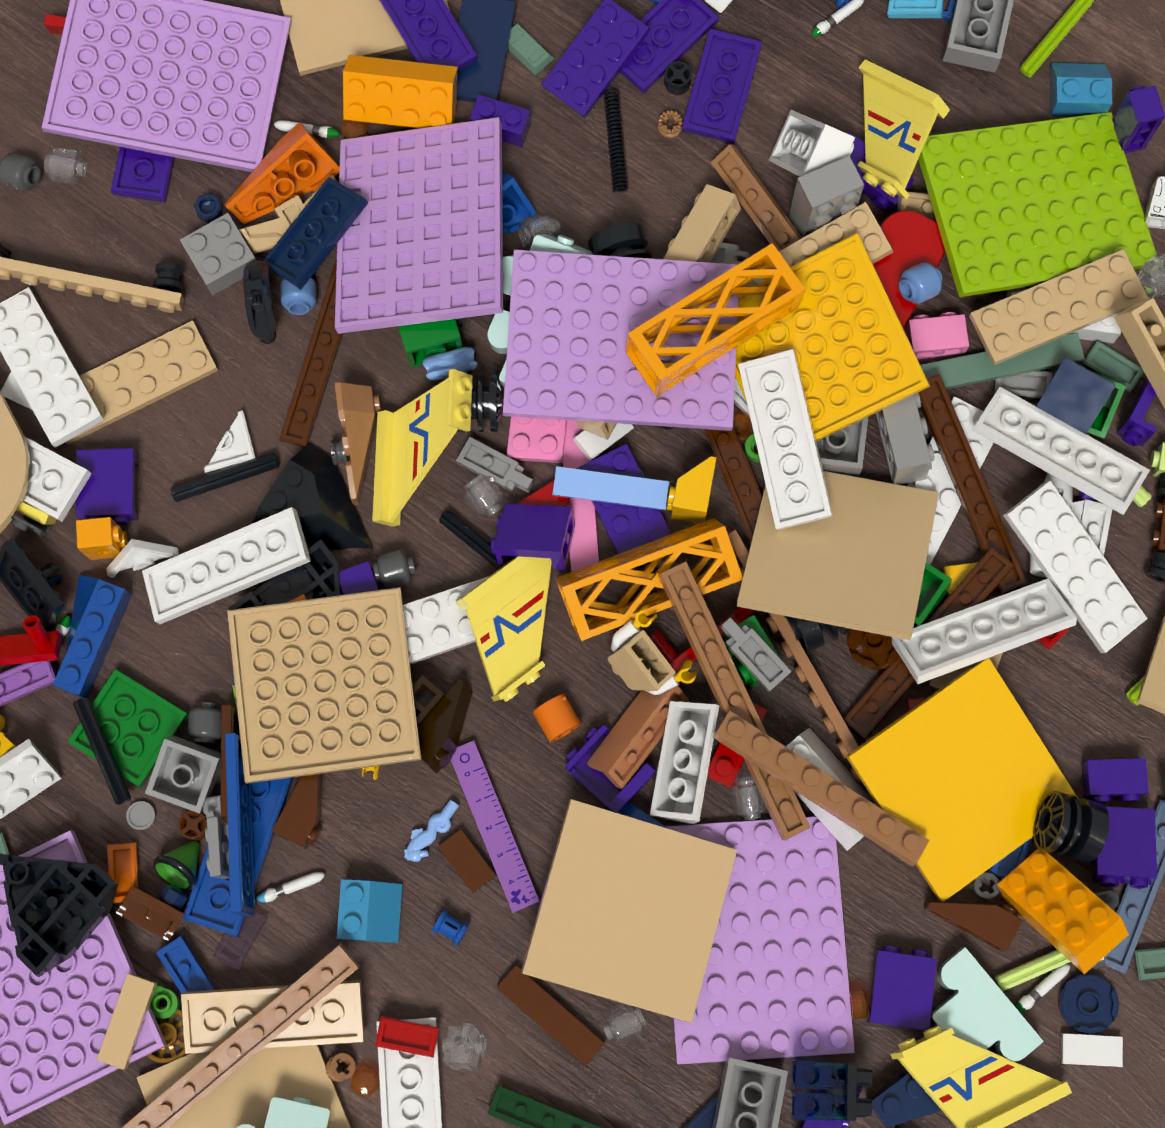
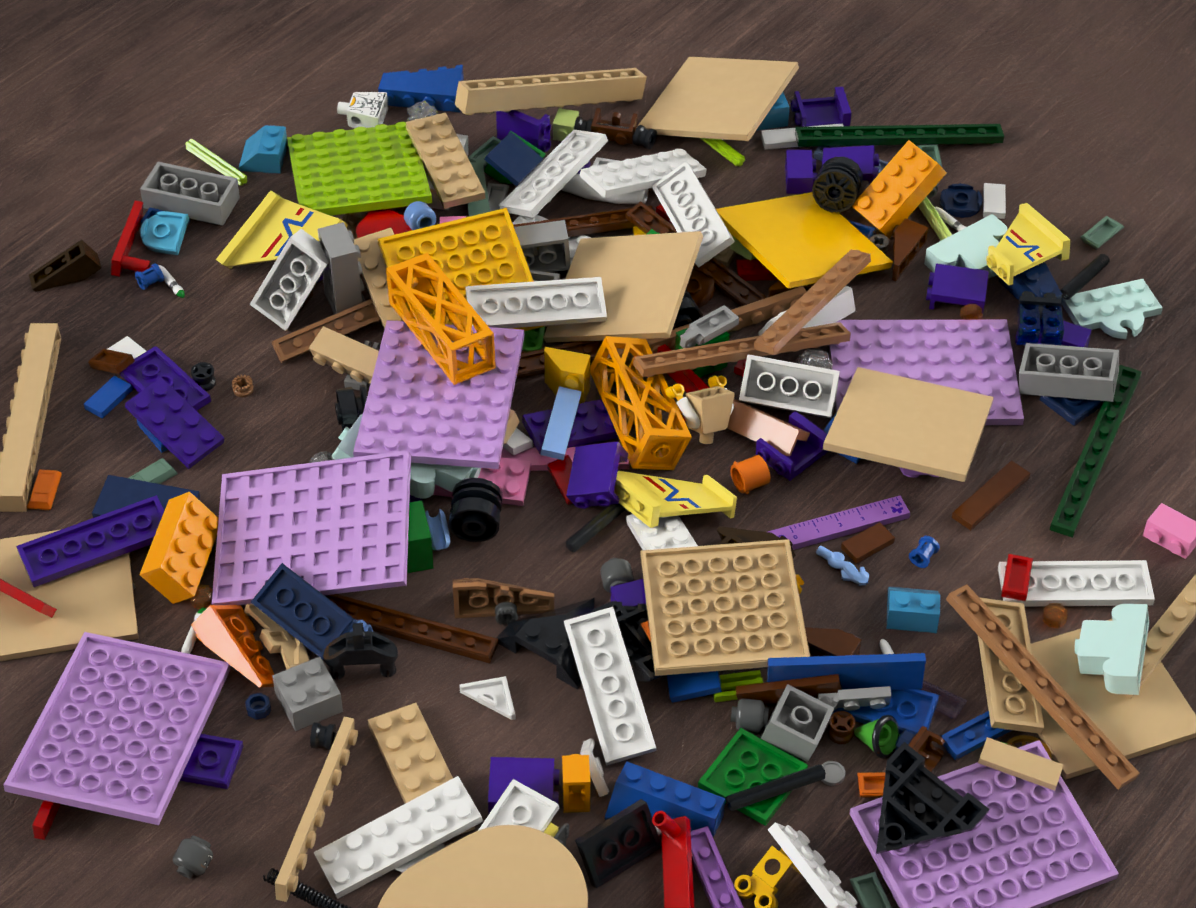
camera: 90 degrees left, 30 degrees down
(65, 165) = (194, 816): clear head -> none
(224, 477) = (521, 701): black axle -> none
(332, 1065) = (1045, 628): medium nougat bush -> none
(414, 439) = (506, 543): light yellow piece -> none
(464, 1047) = (1023, 540): clear brick -> none
(483, 495) = (556, 515): clear head -> none
(489, 462) = (529, 509): light grey hinge -> none
(514, 119) = (210, 489): dark purple brick -> none
(616, 141) = (282, 421): black piece -> none
(623, 1023) = (994, 447): clear head -> none
(721, 86) = (223, 350): dark purple plate -> none
(1138, 118) = (302, 108): dark purple brick -> none

